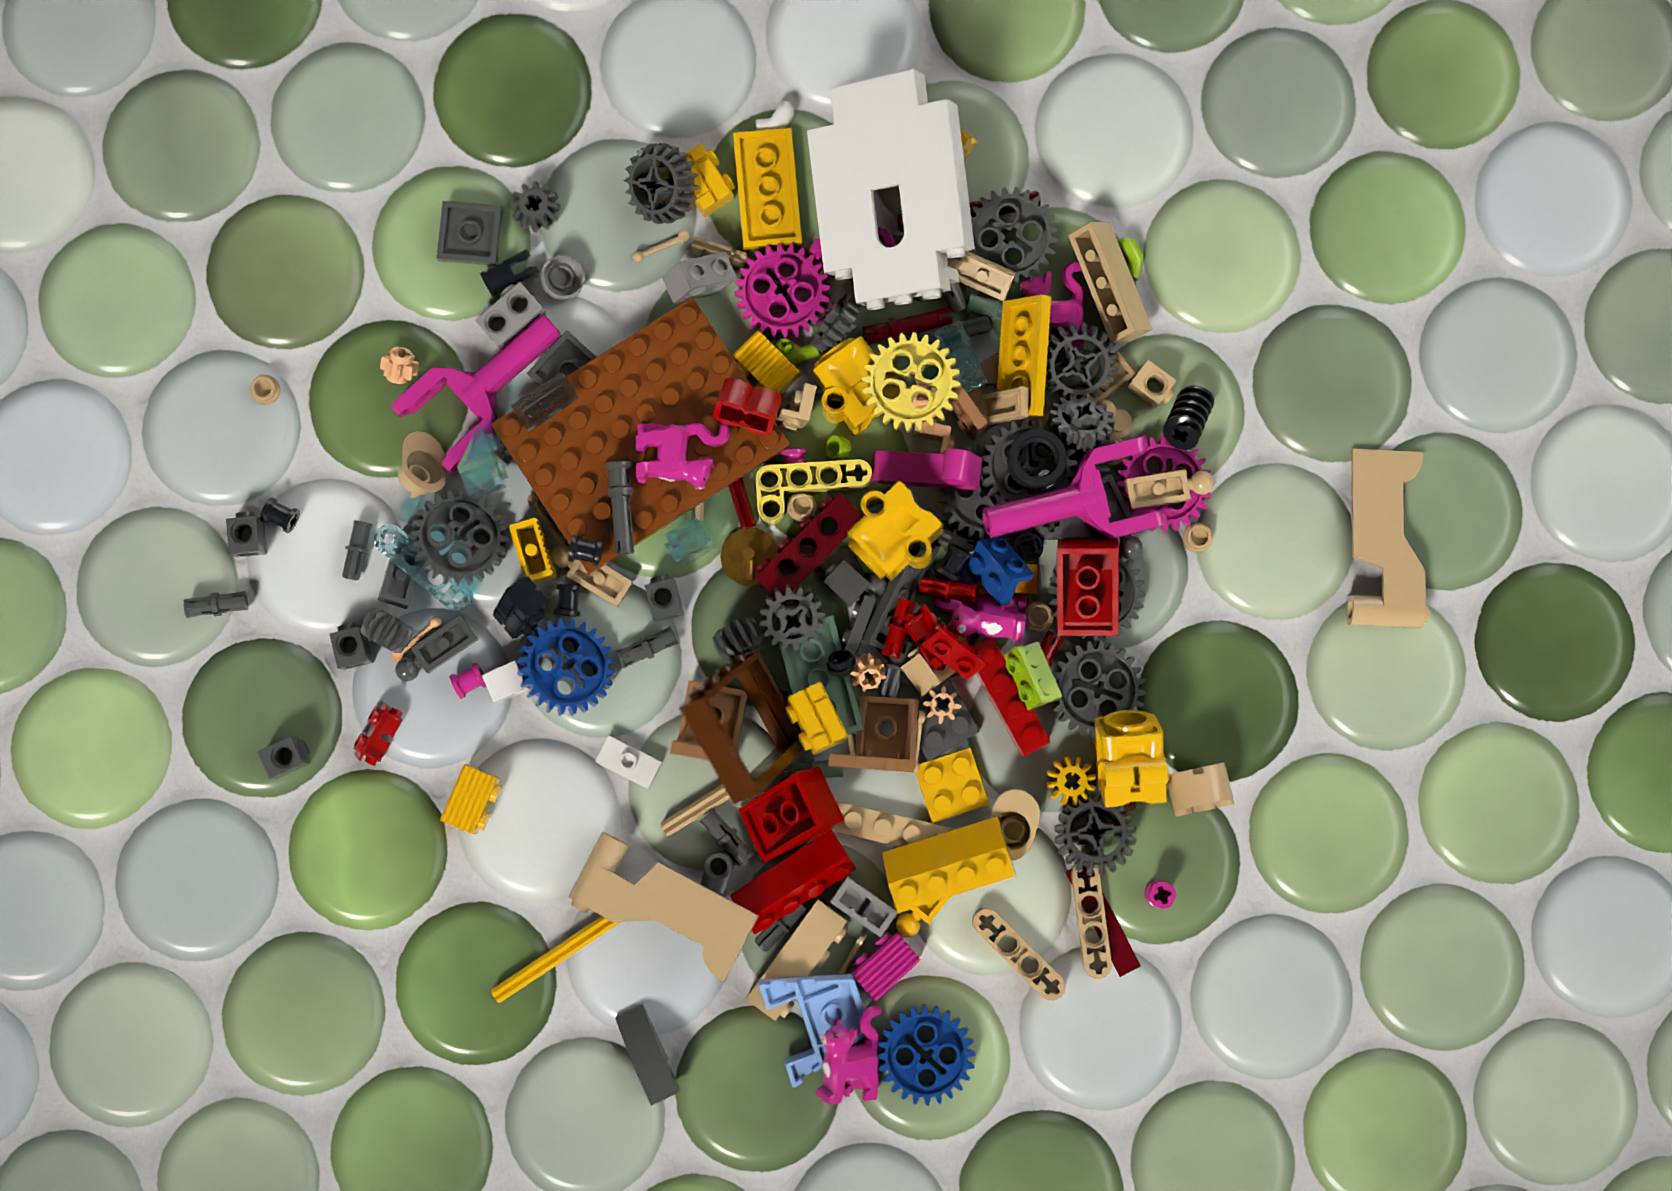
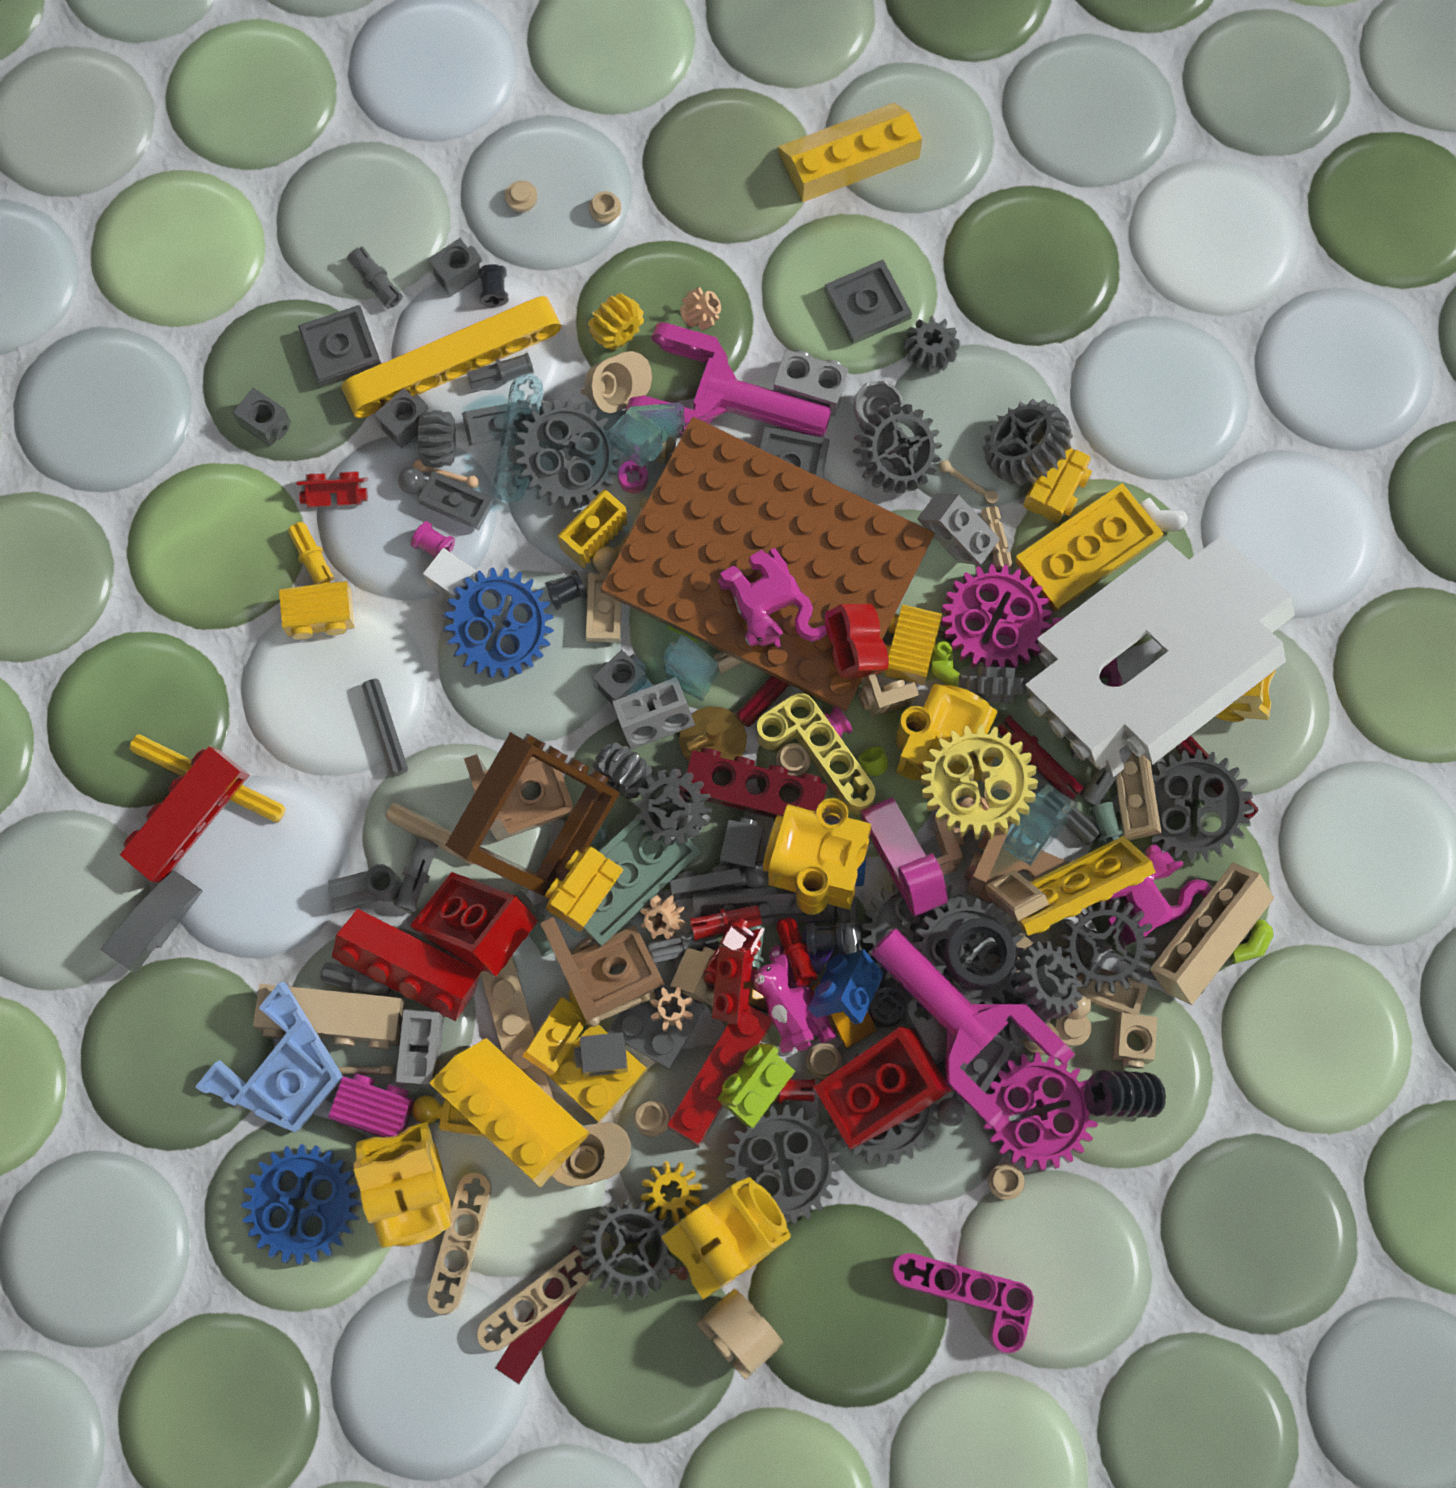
camera: 60 degrees right, 10 degrees down
(214, 450) = (521, 196): none -> tan plate
(258, 663) = (339, 345): none -> dark grey plate
(321, 581) = (452, 355): none -> yellow beam
(332, 169) = (851, 151): none -> yellow slope
(371, 437) = (616, 321): none -> yellow gear
(422, 780) = (310, 554): none -> yellow axle
(502, 276) = (847, 353): black hinge -> none
(502, 505) = (636, 487): none -> dark pink bush
(521, 608) = (530, 545): black brick -> none
(544, 402) = (743, 449): clear smoke plate -> none
(579, 988) = (184, 814): none -> red brick
(585, 550) = (620, 568): black bush -> none
(595, 798) = (384, 727): none -> dark grey axle
(617, 274) = (891, 436): none -> dark grey gear
(620, 493) = (697, 569): dark grey pin -> none
(628, 762) = (438, 738): white plate -> none
(646, 647) = (563, 690): dark grey pin -> none
(665, 898) = (319, 848): tan door -> none
(707, 589) = (653, 713): none -> light grey brick
(841, 663) = (655, 883): black plate -> none
(850, 1066) = (251, 1133): dark pink animal -> none
(909, 799) = (556, 1035): none -> yellow plate
(946, 775) = (601, 1054): none -> dark grey brick
(960, 973) = (403, 1187): none -> yellow piece
(1009, 764) = (652, 1119): none -> tan plate
(1151, 890) = (617, 1357): dark pink bush -> none
(1166, 488) = (1034, 1111): tan plate -> none
(1257, 616) = (961, 1293): none -> dark pink beam
(1380, 540) = (1122, 1382): tan door -> none

